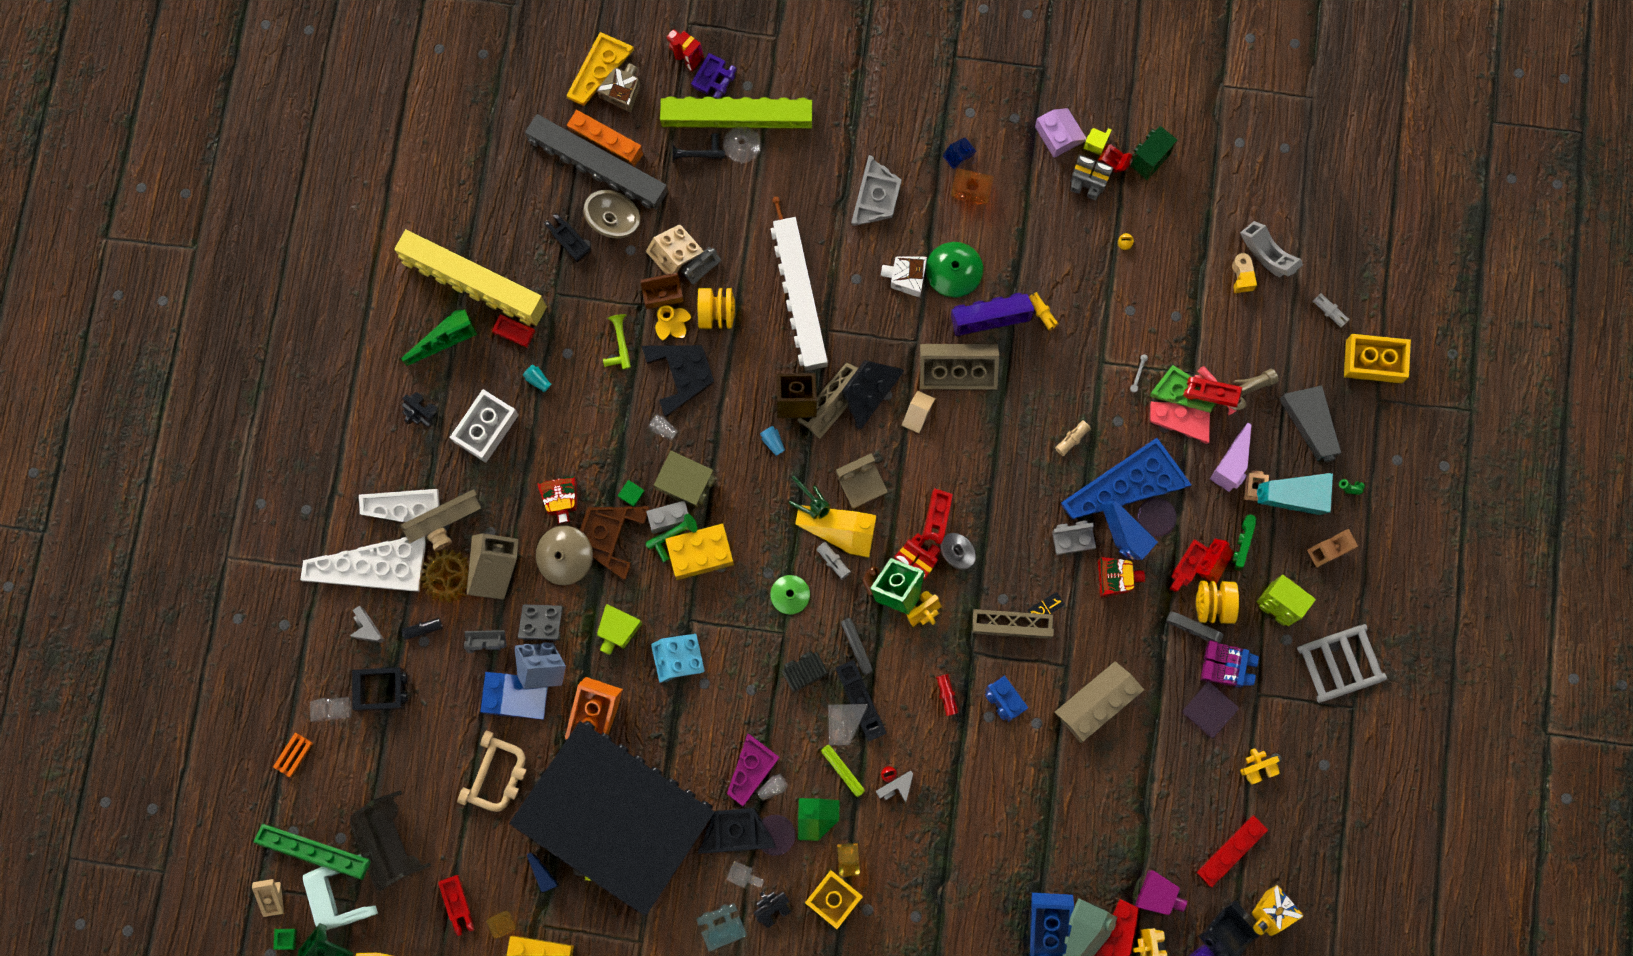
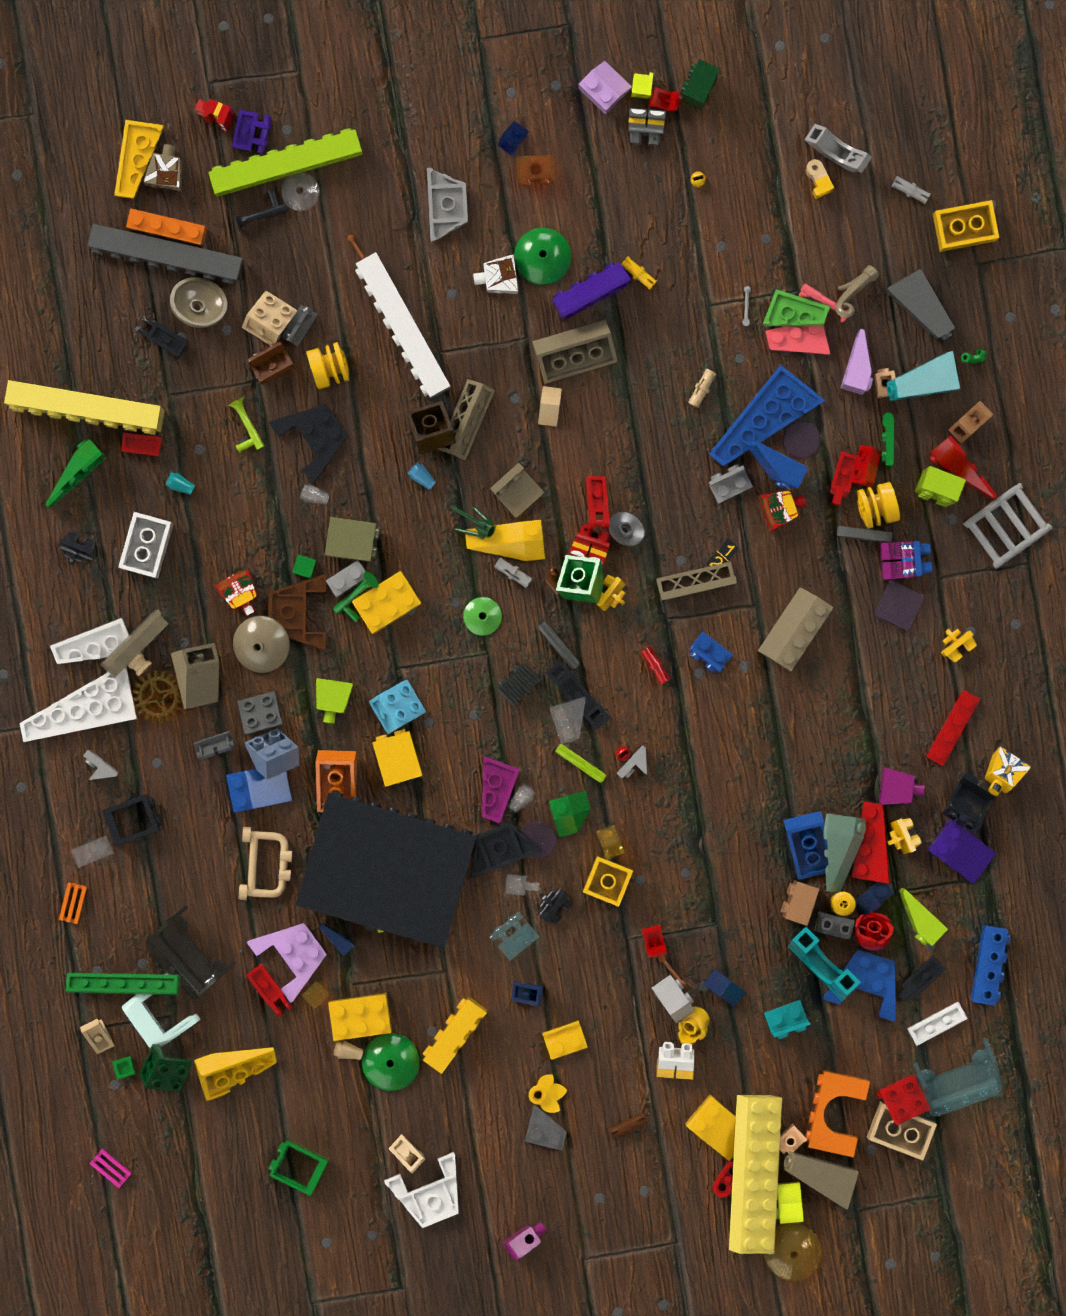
camera: 20 degrees left, 10 degrees up
(422, 628) = (151, 752): black axle -> none
(500, 874) = (299, 951): none -> lavender wing
(661, 708) = (397, 757): none -> yellow brick
(674, 324) = (291, 392): yellow plate -> none
(868, 389) = (497, 399): black wing -> none
(1213, 392) = (821, 307): red plate -> none
(1307, 575) = (951, 458): none -> red wedge

